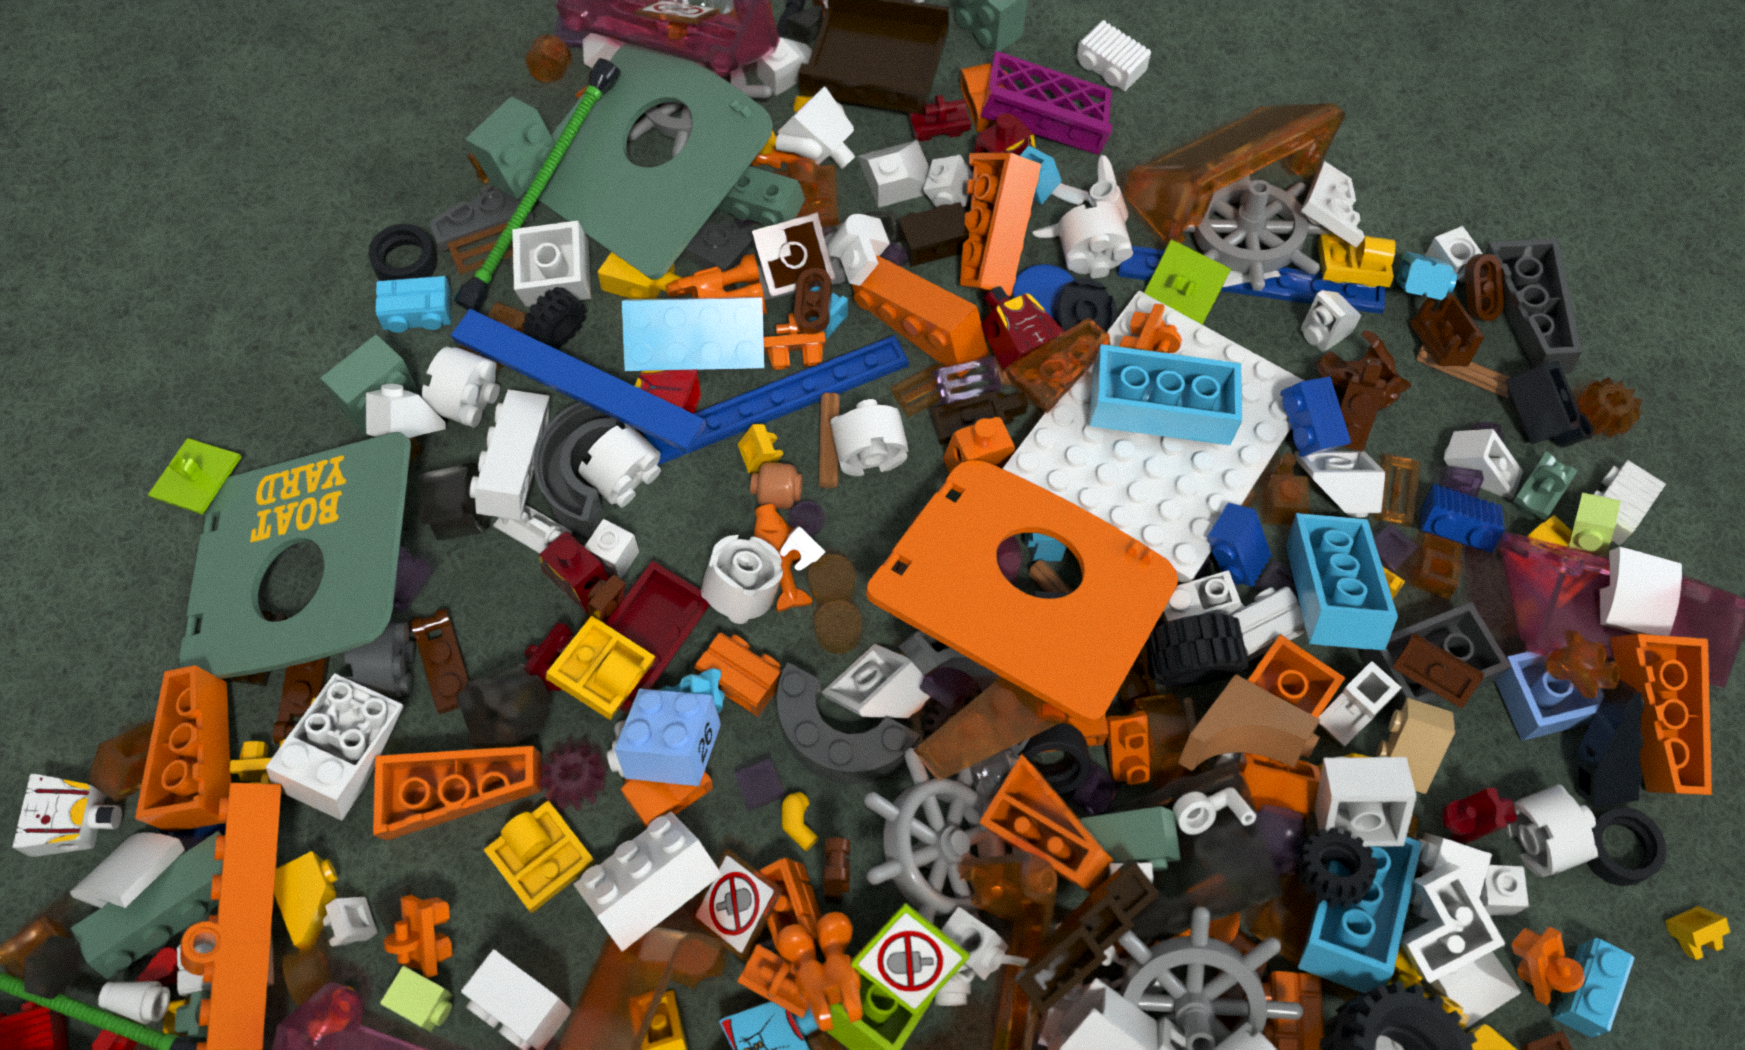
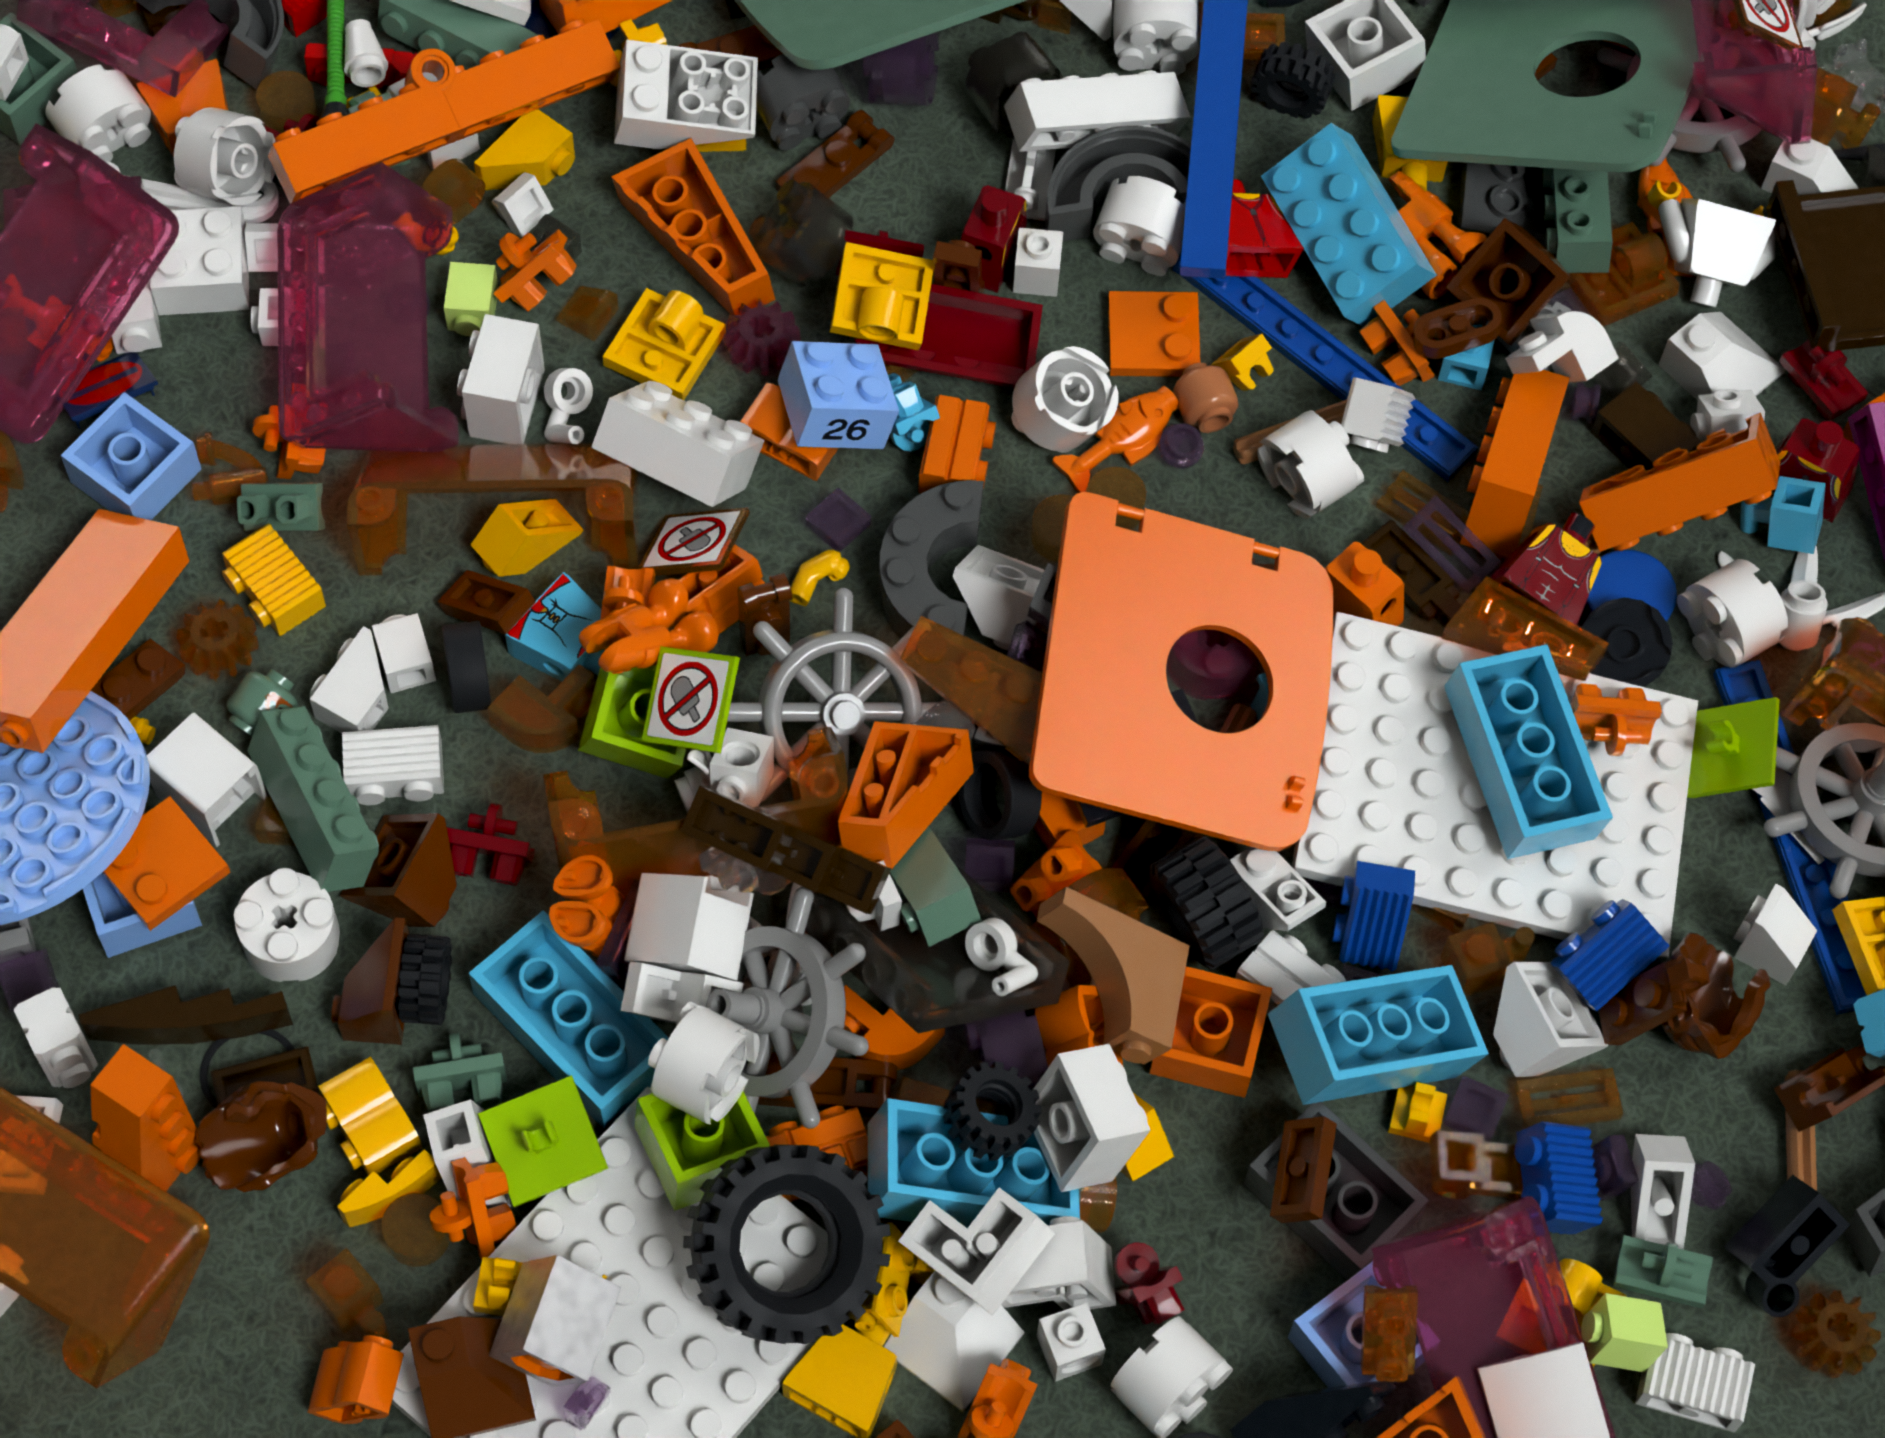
camera: 65 degrees right, 0 degrees up
(475, 906) = (589, 311): none -> clear orange slope
(547, 953) = (576, 400): none -> white plate
(705, 499) = (1153, 333): none -> orange plate
(807, 547) = (1141, 448): white tile -> none
(856, 378) = (1376, 414): none -> white brick
(1358, 704) = (1236, 1118): white brick -> none
(1422, 736) = (1206, 1189): tan brick -> none

